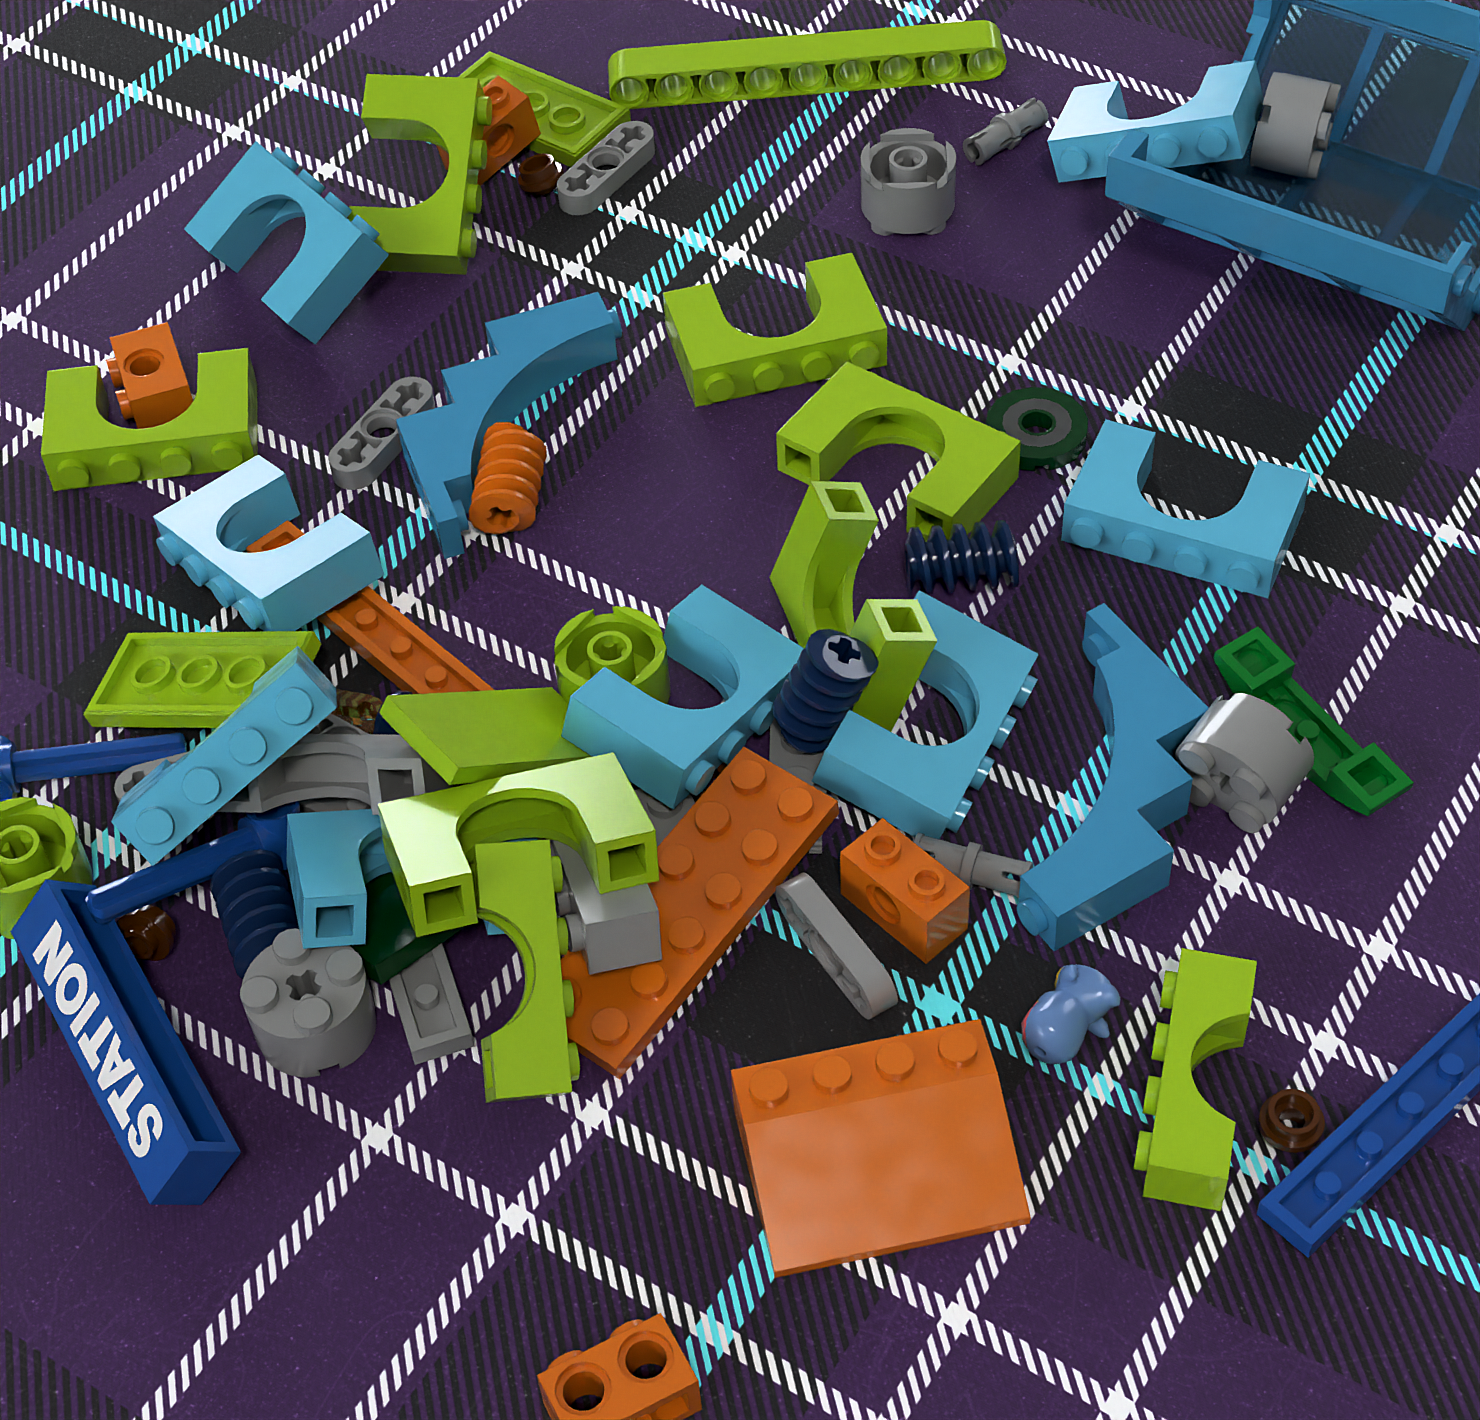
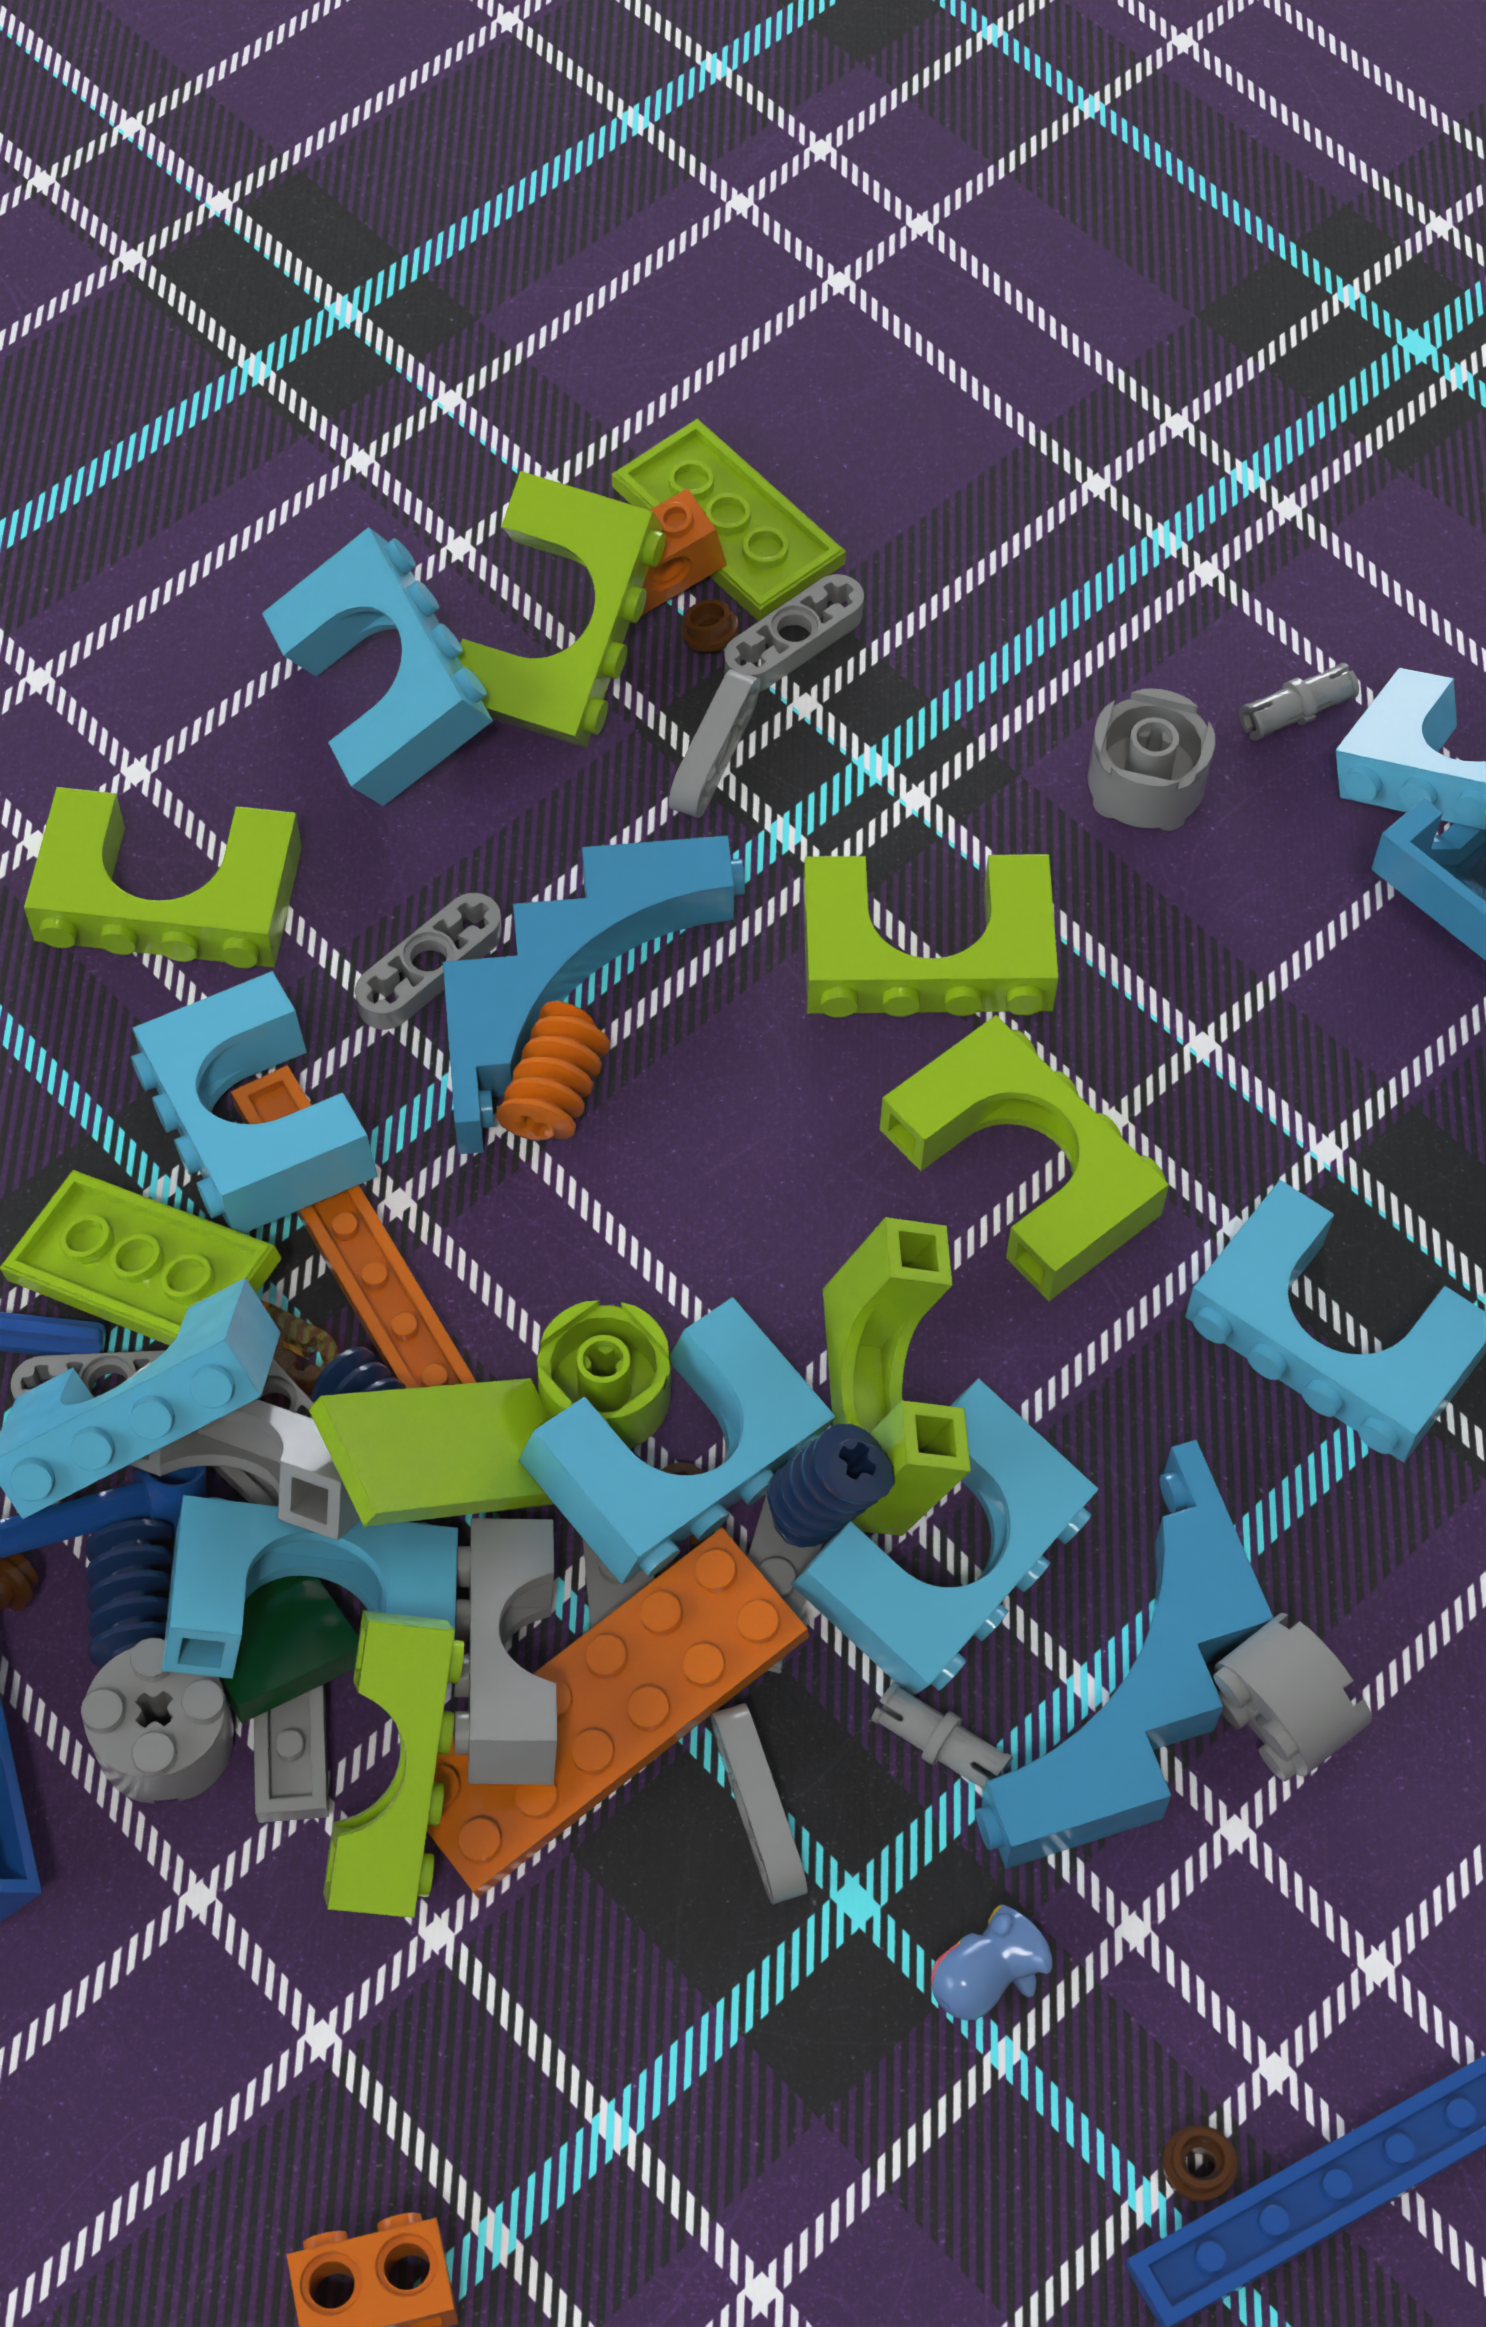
camera: 10 degrees right, 10 degrees up
(151, 374) = (181, 790): orange brick -> none
(567, 245) = (714, 743): none -> light grey beam
(573, 802) = (501, 1567): lime arch -> none
(806, 64) = (1082, 538): lime beam -> none
(878, 1147) = (731, 2074): orange slope -> none
(904, 890) = (854, 1756): orange brick -> none
(961, 556) = (1052, 1323): dark blue piece -> none
(1043, 408) = (1210, 1124): dark green tile -> none
(1190, 1140) = (1073, 2163): lime arch -> none
(1341, 768) = (1384, 1662): green slope -> none

